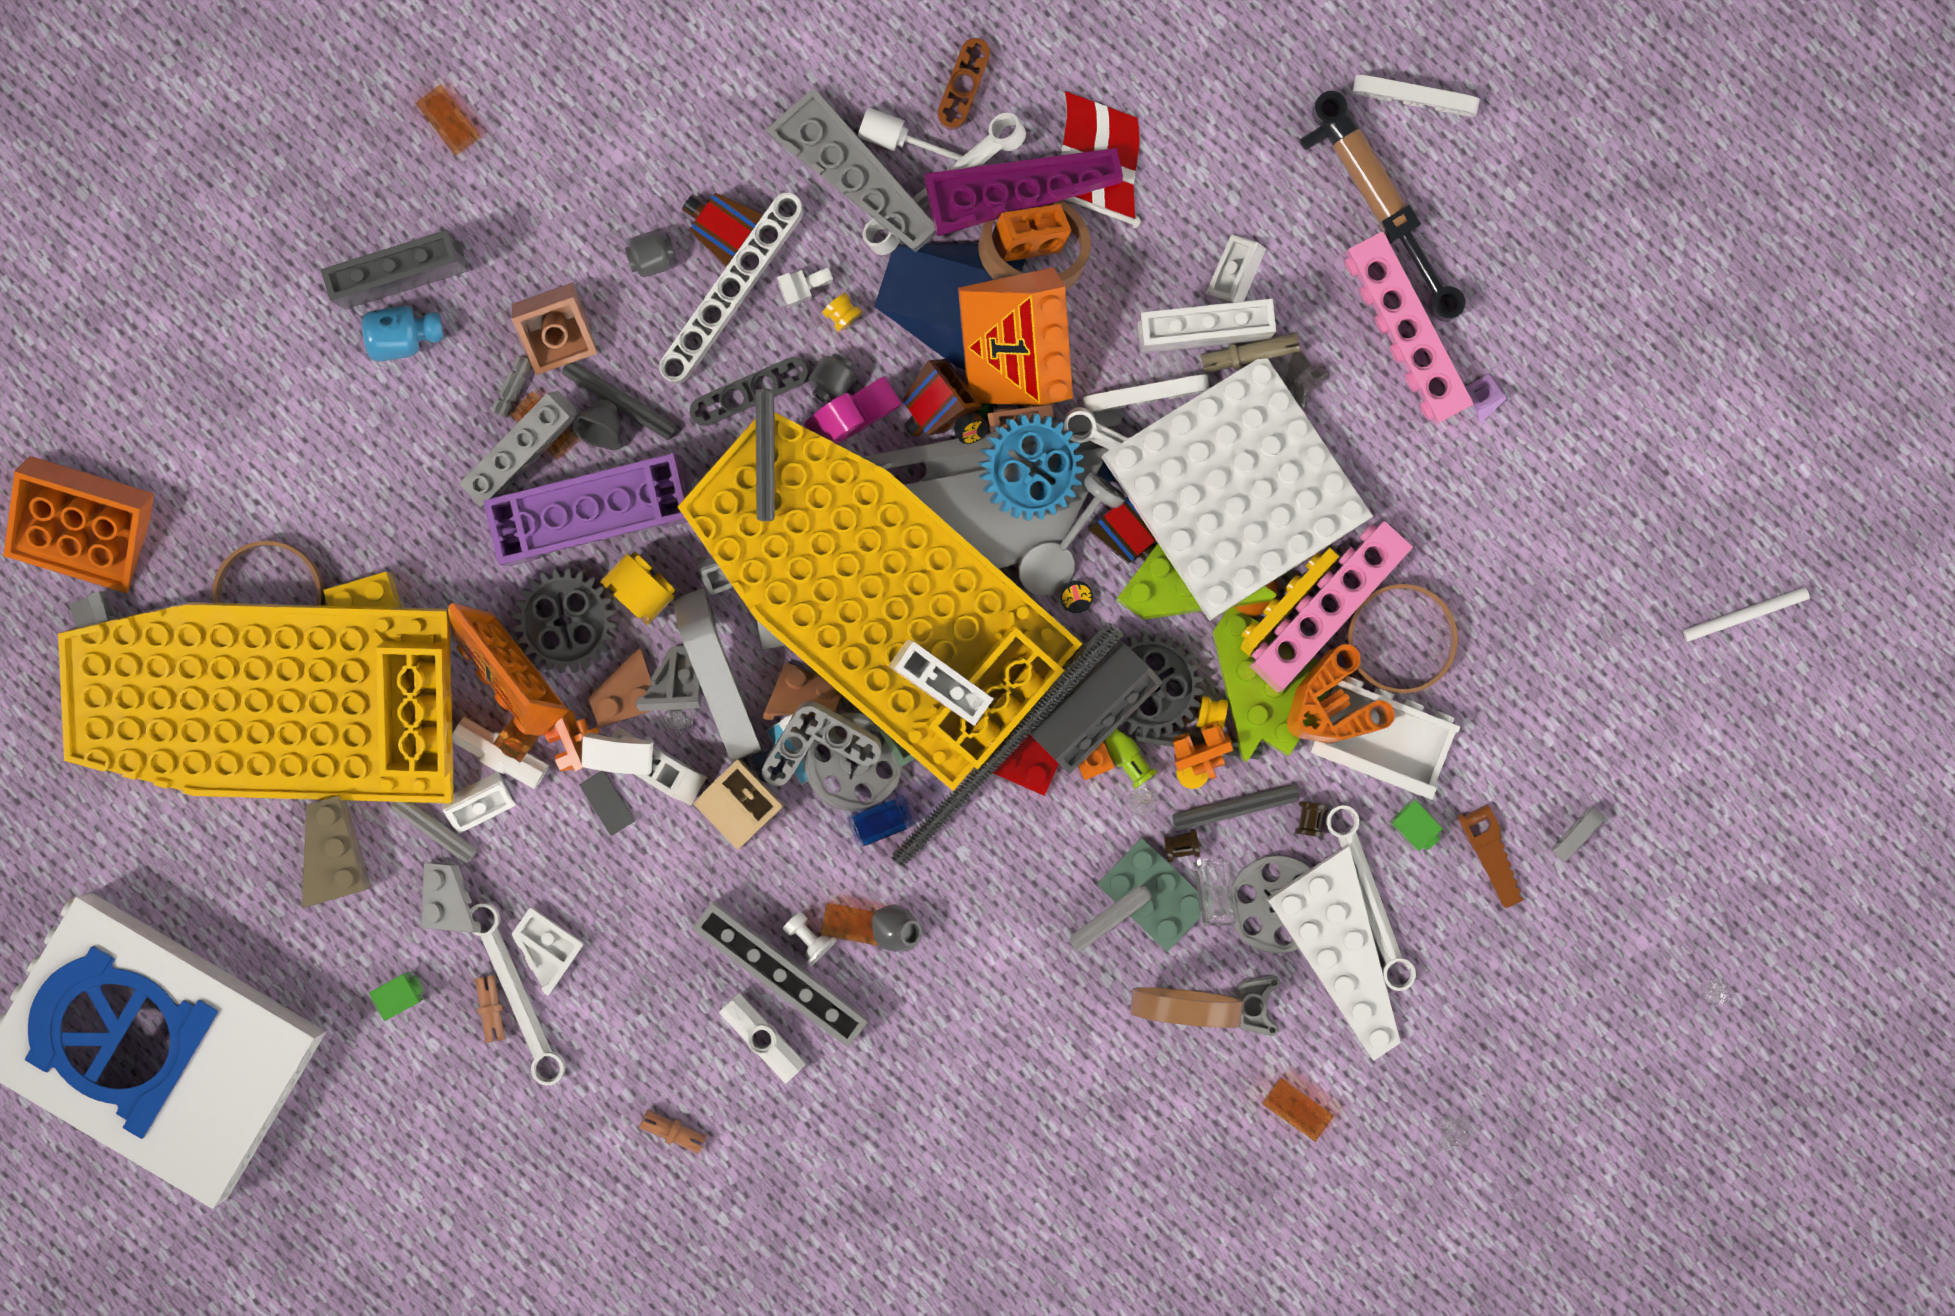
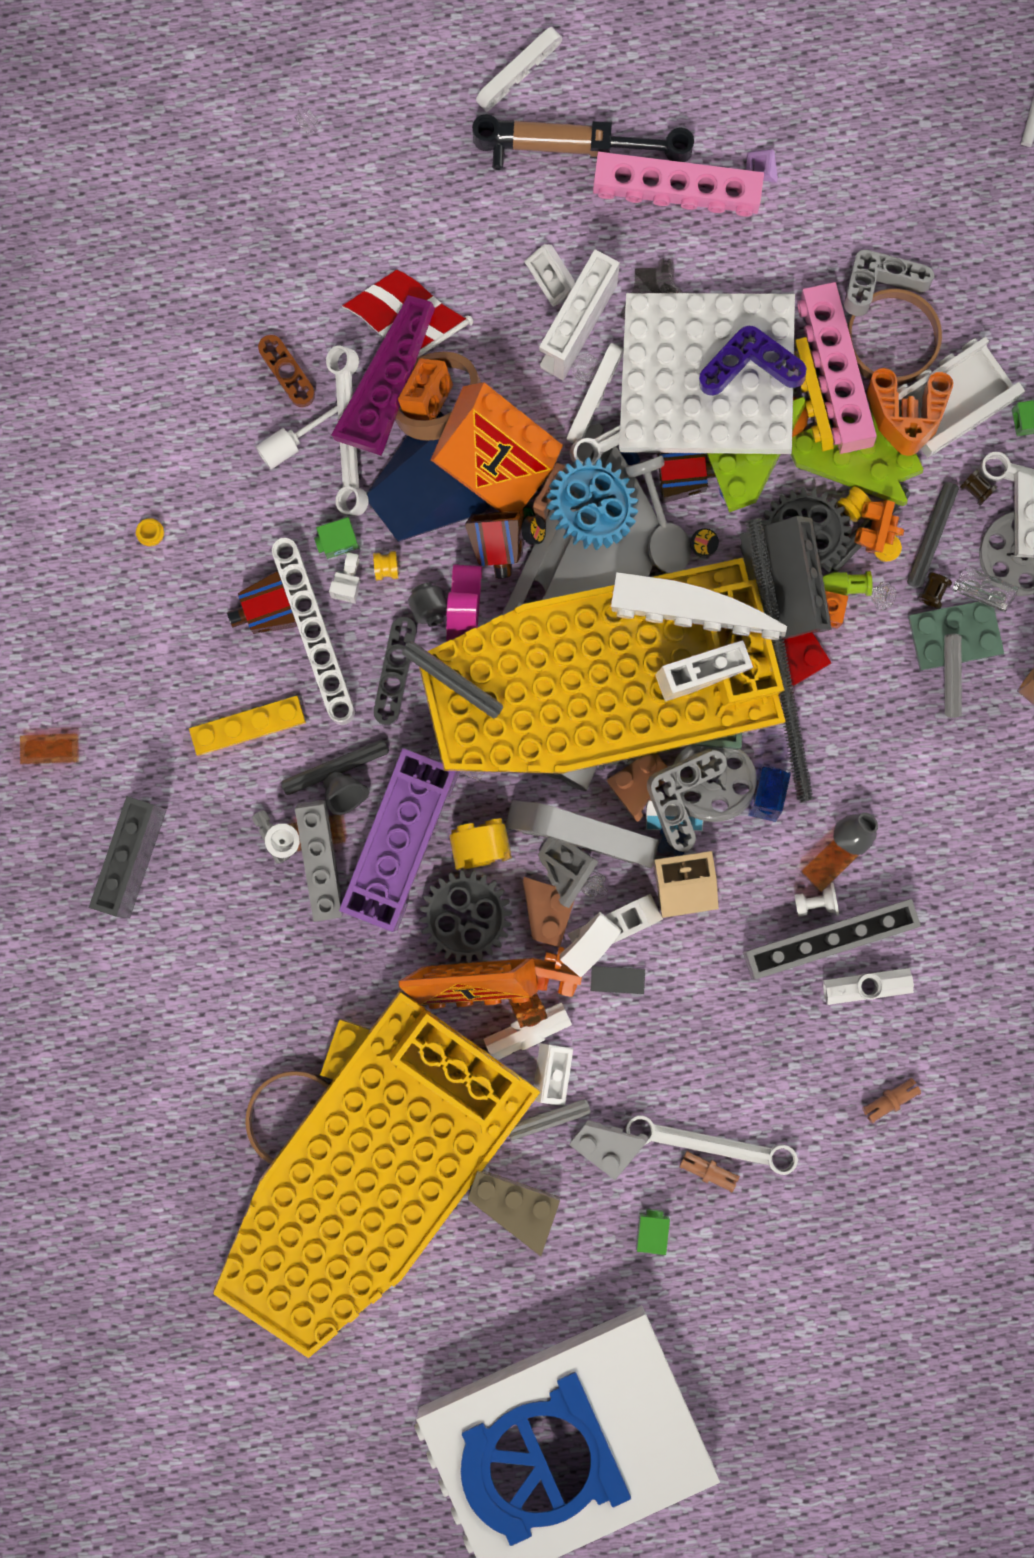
camera: 50 degrees left, 5 degrees down
(77, 521) = (141, 1222): orange slope -> none
(92, 610) = (213, 1258): light grey panel -> none
(396, 332) = (174, 891): dark azure piece -> none
(510, 402) = (282, 840): none -> white piece
(546, 947) = (693, 1098): white wing -> none
(553, 328) = (251, 776): nougat slope -> none
(600, 289) = (247, 725): none -> yellow plate
(649, 253) = (247, 671): dark grey head -> none
(712, 574) = (505, 785): light grey slope -> none
(718, 65) = (149, 532): none -> yellow plate
(835, 247) = (336, 538): none -> bright green brick
(836, 154) = (272, 490): light grey wing -> none
(990, 624) = (687, 605): none -> white slope
(1248, 353) = (617, 303): dark tan pin -> none
(1282, 520) = (755, 353): none -> dark purple beam
(1455, 580) = (877, 271): none -> light grey beam

